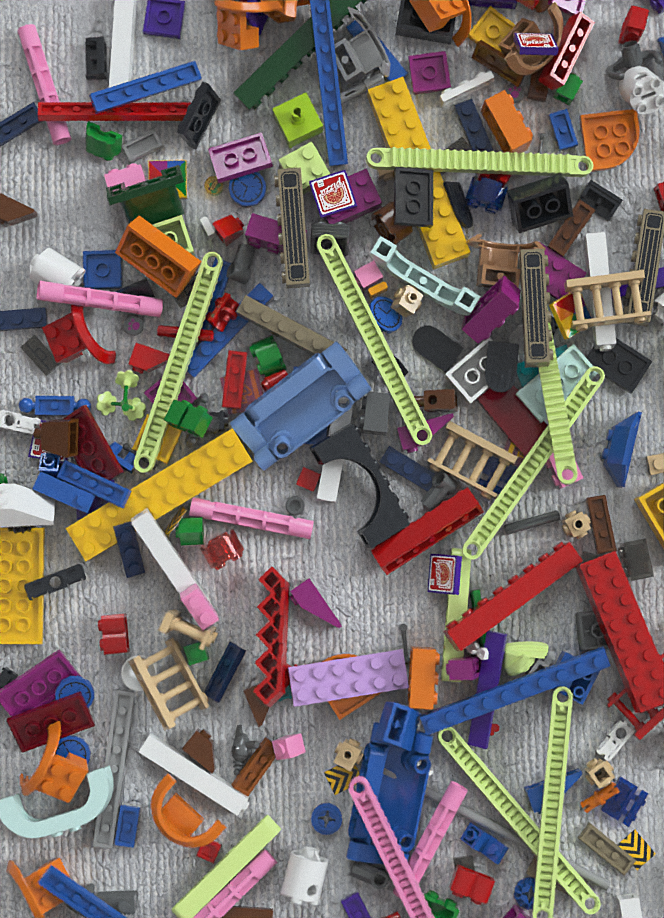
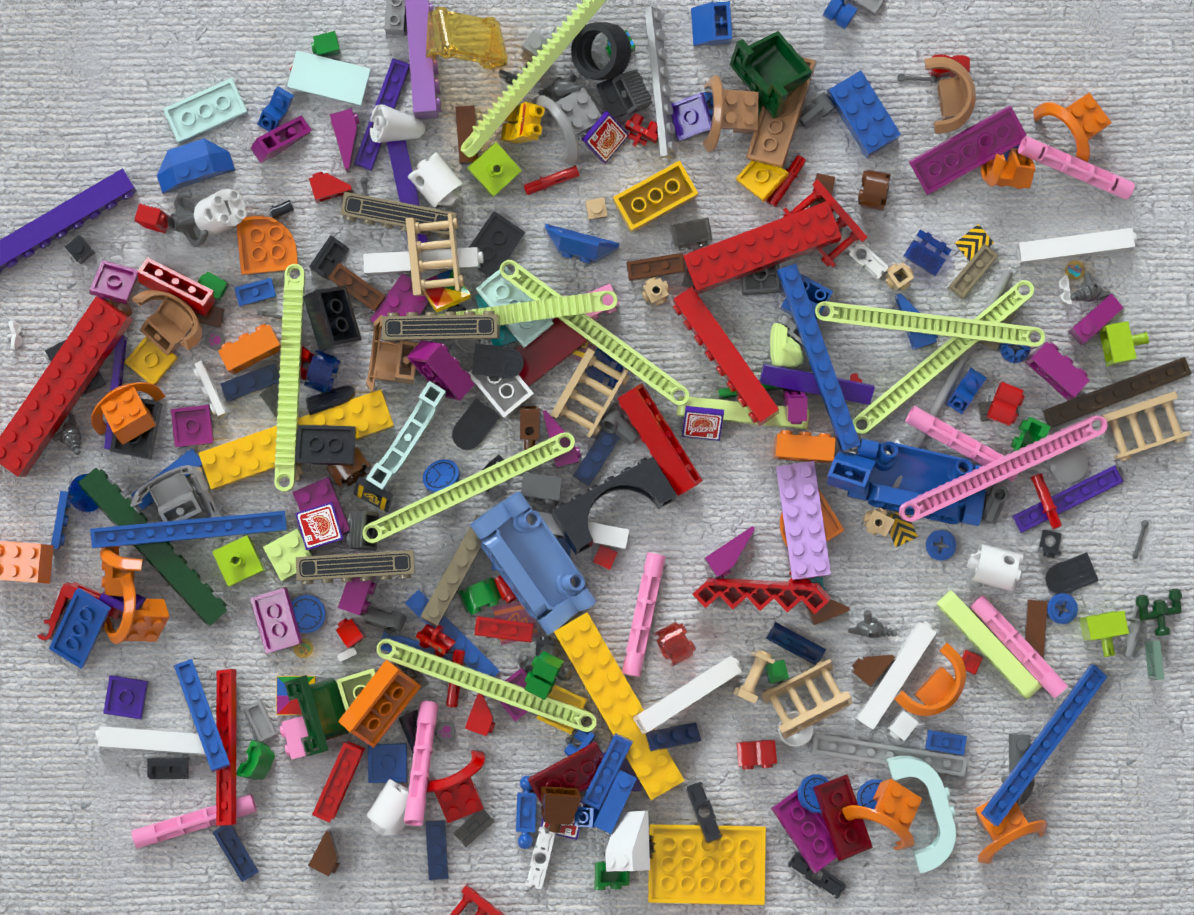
camera: 90 degrees left, 0 degrees up
(81, 219) = (338, 781): none -> red fence
(131, 408) = (529, 734): yellowish green plant -> none
(143, 781) = (902, 726): none -> white brick
(175, 520) = (645, 691): sticker -> none
(190, 531) = (656, 675): green brick -> none
(198, 115) = (232, 661): black plate -> none
(199, 606) = (731, 666): bright pink brick -> none
(255, 767) = (889, 613): dark orange plate -> none
(288, 746) = (870, 581): bright pink brick -> none
(295, 505) = (631, 571): dark grey tile -> none
(365, 246) = (373, 494): none -> black tile
(368, 275) = (401, 493): bright pink brick -> none
(377, 289) = (415, 483): light orange tile -> none
(403, 627) = (754, 465): dark grey hinge -> none
(407, 300) = (427, 454): tan brick -> none
(474, 648) = (776, 395): white piece -> none
(495, 61) = (183, 359): reddish brown plate -> none
(532, 522) = (652, 335): dark grey axle -> none
(535, 44) = (173, 318): tile -> none
(599, 797) = (923, 276): orange pin -> none
(646, 152) = (281, 209): none -> black pin

